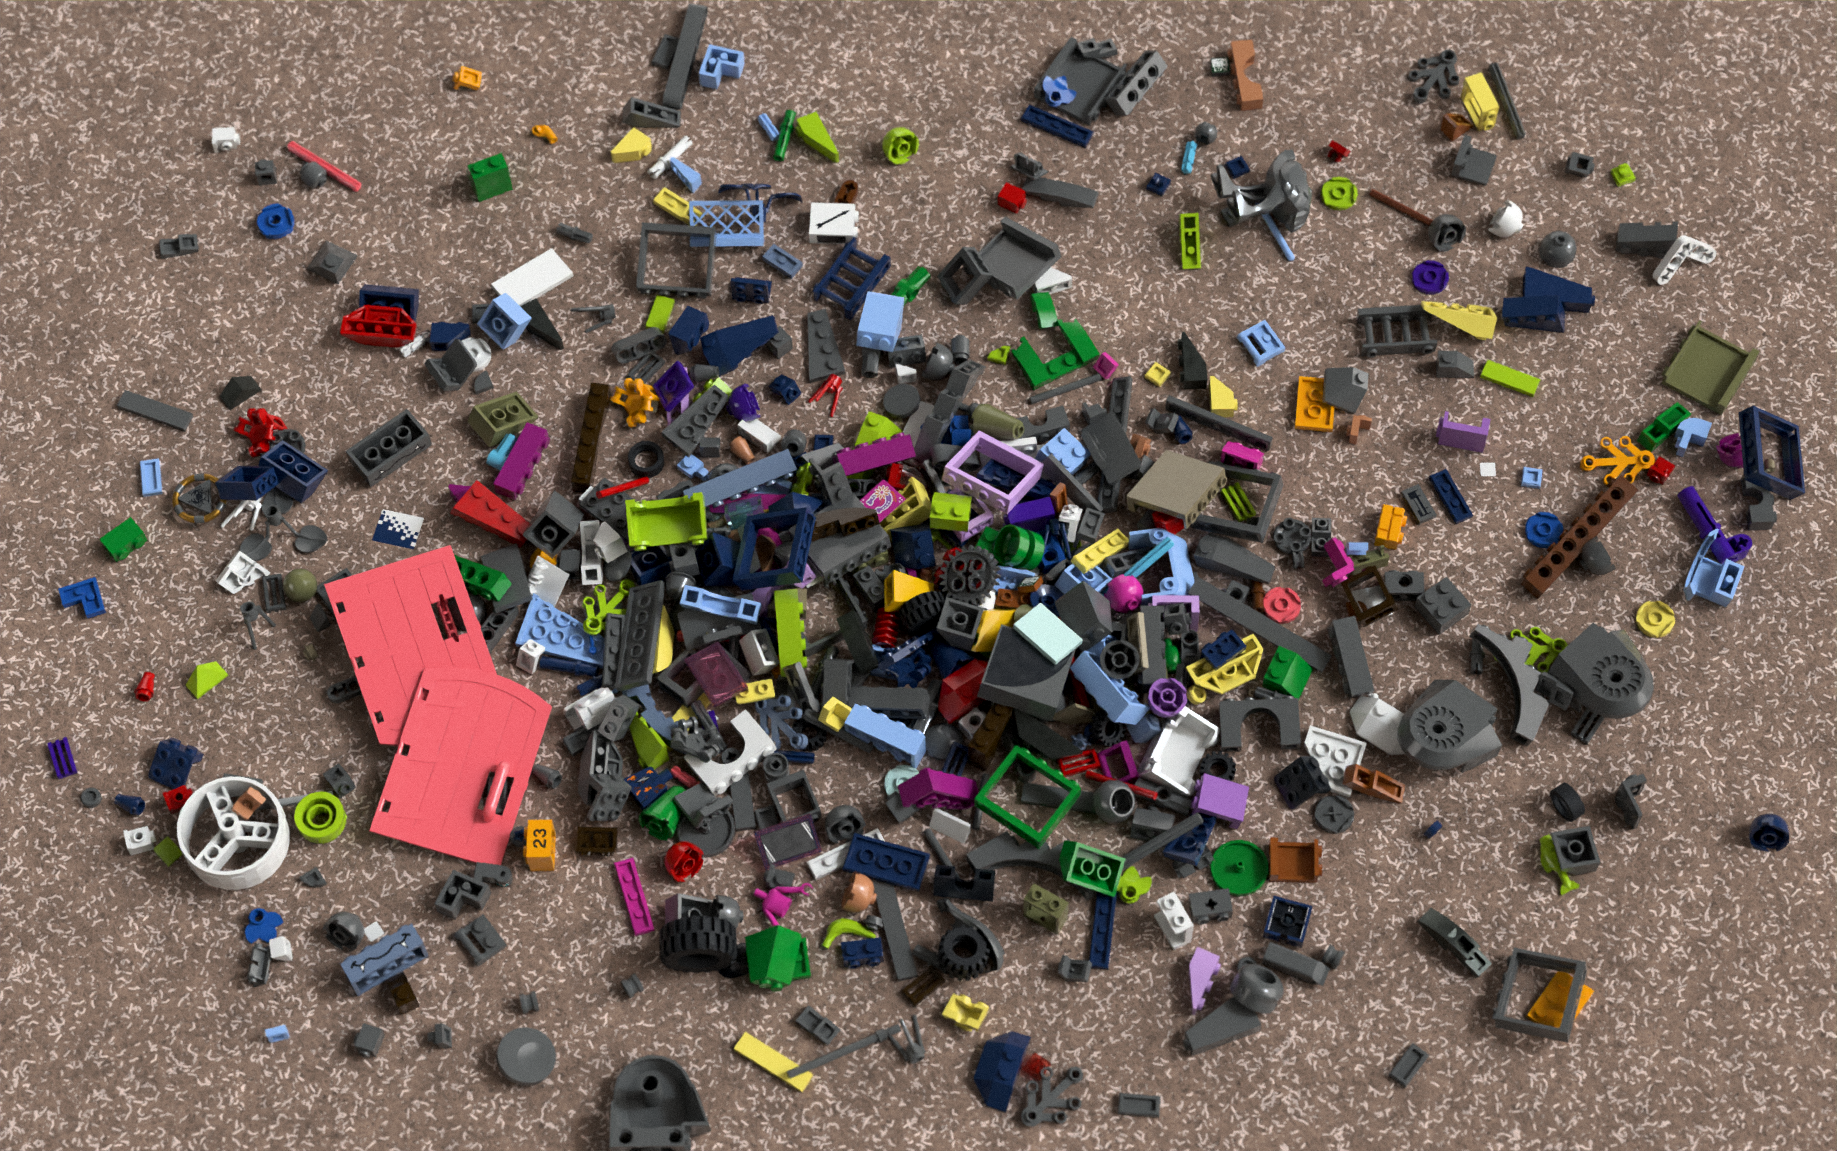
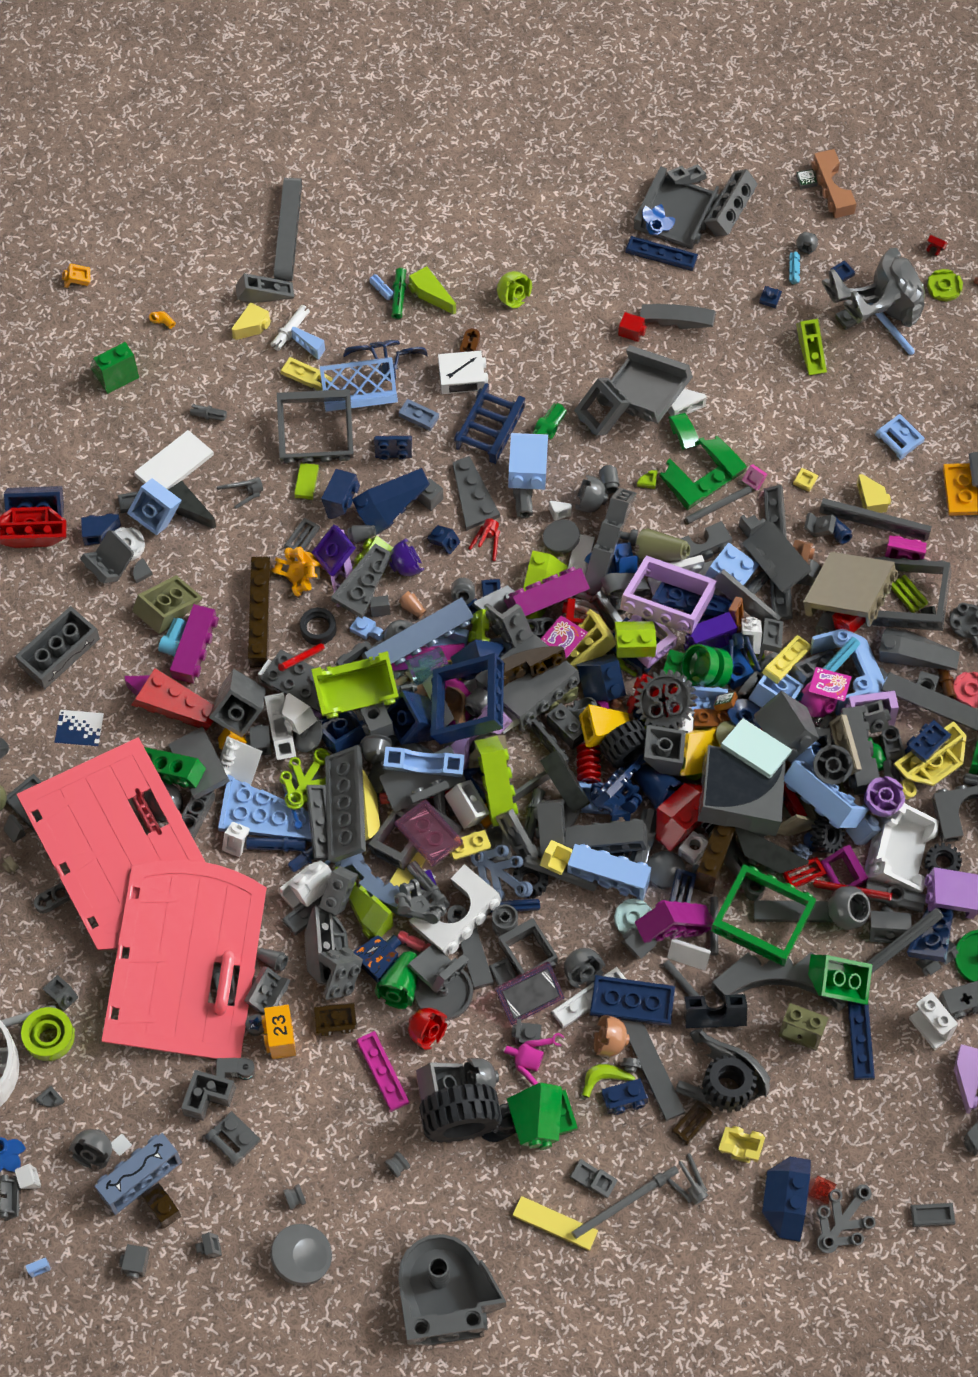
camera: 10 degrees left, 0 degrees up
(418, 342) = (70, 538): white axle -> none
(535, 804) = (266, 990): none -> dark grey bracket
(648, 345) = (283, 514): dark grey beam -> none
(665, 52) = (268, 227): dark grey tile -> none
(720, 62) = (325, 230): light blue brick -> none
(759, 434) = (426, 587): white panel -> none
(908, 351) = (558, 487): dark grey bracket -> none
(1028, 166) = (642, 295): dark grey hinge -> none
(1074, 969) = (842, 1084): dark grey bracket -> none
(1133, 883) = (882, 988): lime plate -> none
(1140, 580) = (835, 684): none -> dark pink sticker
(1194, 367) = (840, 467): pearl dark grey slope -> none

